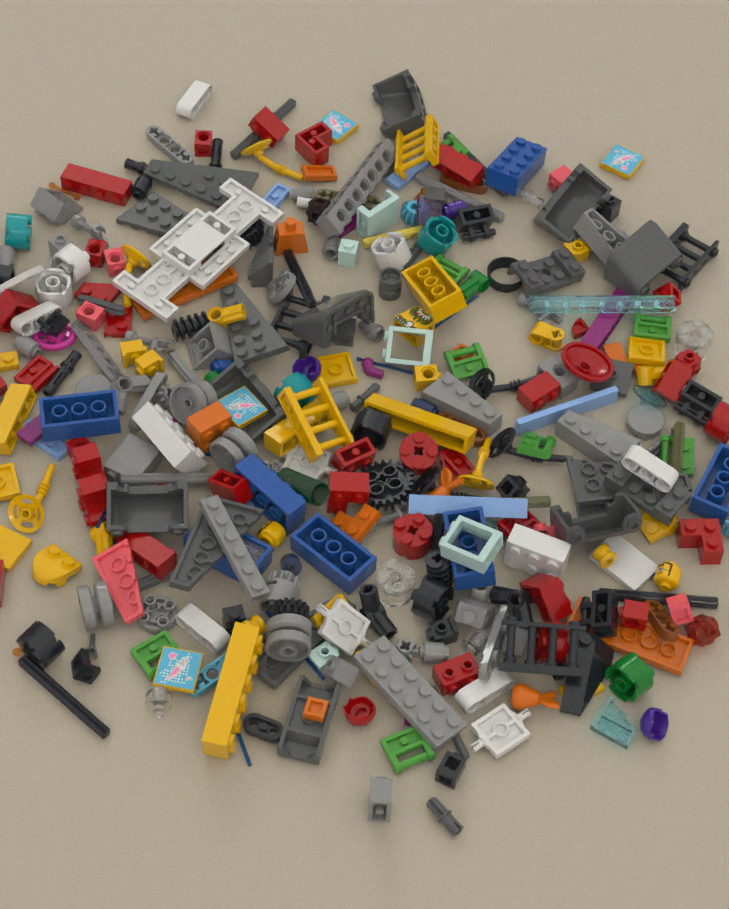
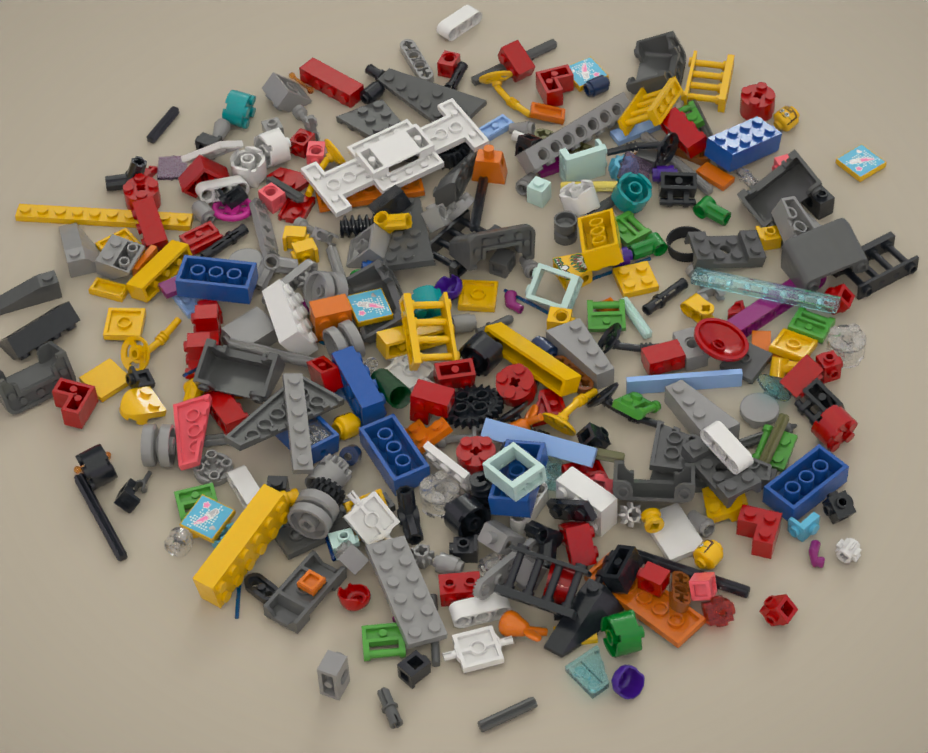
camera: 25 degrees right, 5 degrees down
(41, 538) = (139, 378): none -> black bracket
(214, 294) = (392, 201): none -> black brick
(265, 301) = (436, 217): none -> light grey brick
(353, 136) = (596, 85): none -> dark blue brick
(381, 547) = (442, 461): none -> white plate
(449, 185) = (663, 147): none -> black dish
(466, 104) = (722, 88): none -> yellow fence
(474, 320) = (635, 279): none -> yellow plate
(495, 360) = (637, 319): none -> light aqua axle
(500, 202) = (715, 176): none -> orange tile
(507, 122) = (757, 101): none -> red brick
(507, 335) = (650, 307): none -> black pin
(509, 235) = (708, 208): none -> green piece
(529, 566) = (571, 509): none -> black plate
(539, 132) = (786, 118): none -> yellow head
(557, 789) = (507, 714): none -> dark grey axle
(580, 555) = (624, 514): none -> white gear
(648, 547) = (702, 524): none -> light grey cone

